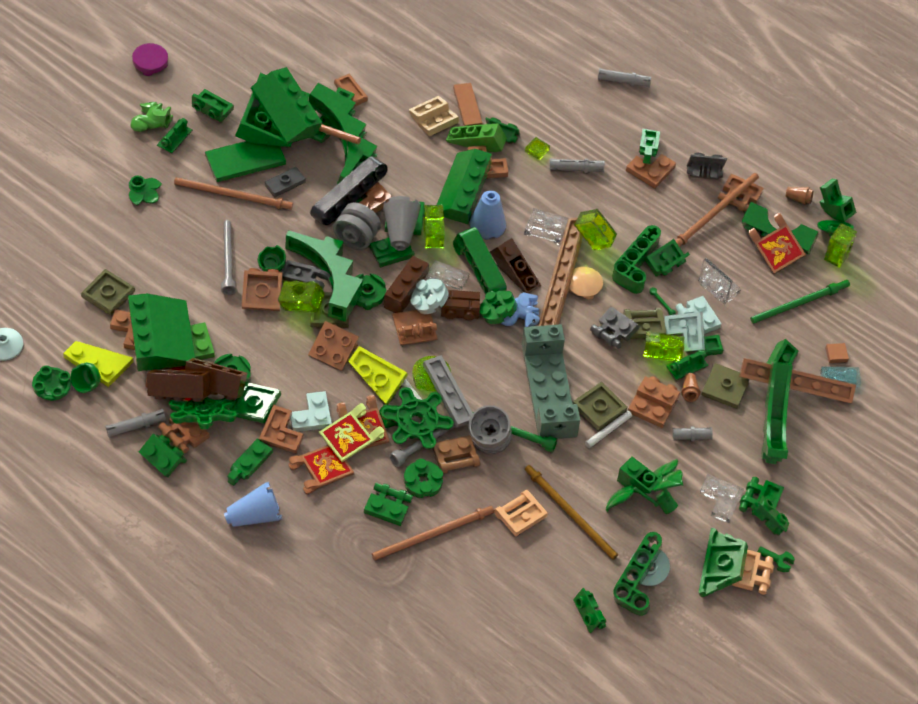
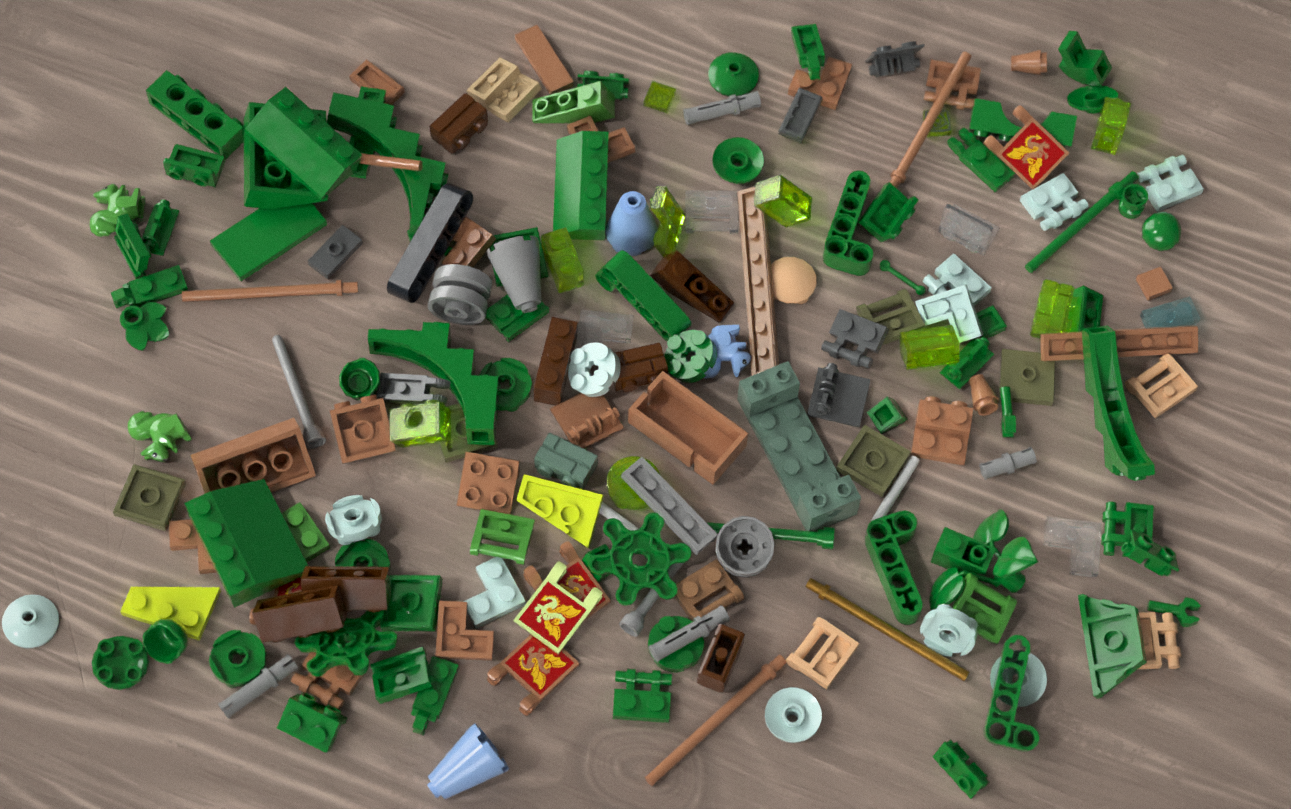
camera: 15 degrees left, 10 degrees up
(121, 395) = (222, 653): none -> green plate
(131, 254) = (163, 430): none -> bright green animal
(150, 58) = (82, 118): magenta tile -> none
(153, 140) = (131, 245): none -> green plate
(159, 170) = (151, 288): none -> green hinge
(198, 288) = (267, 454): none -> nougat slope
(224, 75) = (220, 141): none -> green brick
(231, 443) = (401, 675): none -> green plate
(236, 341) = (347, 530): none -> light aqua plate
(332, 375) = (503, 529): none -> bright green plate
(390, 346) = (565, 462): none -> sand green brick
(396, 127) = (459, 124): none -> reddish brown brick
(440, 470) = (689, 633): none -> light grey pin
(449, 493) = (720, 658): none -> reddish brown brick
(479, 348) = (687, 427): none -> nougat piece
(489, 537) = (795, 702): none -> light aqua dish
(516, 219) = (670, 218): none -> clear neon green plate
(575, 193) = (738, 151): none -> green dish
(590, 476) = (897, 570): none -> green beam
(591, 360) = (838, 396): none -> dark grey hinge
(593, 148) = (729, 82): none -> green dish
(618, 515) = (946, 618): none -> light aqua plate
(620, 381) = (887, 415): none -> green slope
(628, 184) = (800, 115): none -> dark grey plate
(635, 519) = (990, 622): none -> bright green plate
(703, 401) = (1008, 420): none -> green bar
(723, 216) = (942, 125): none -> clear neon green tile
(743, 245) = (981, 160): none -> green hinge
(760, 346) = (1053, 308): none -> clear neon green brick
(782, 280) = (1050, 196): none -> light aqua plate
(820, 421) = (1167, 391): none -> light nougat plate
(840, 297) = (1133, 201): none -> green wheel
(854, 321) = (1161, 231): none -> green hair
(872, 299) = (1171, 190): none -> light aqua plate

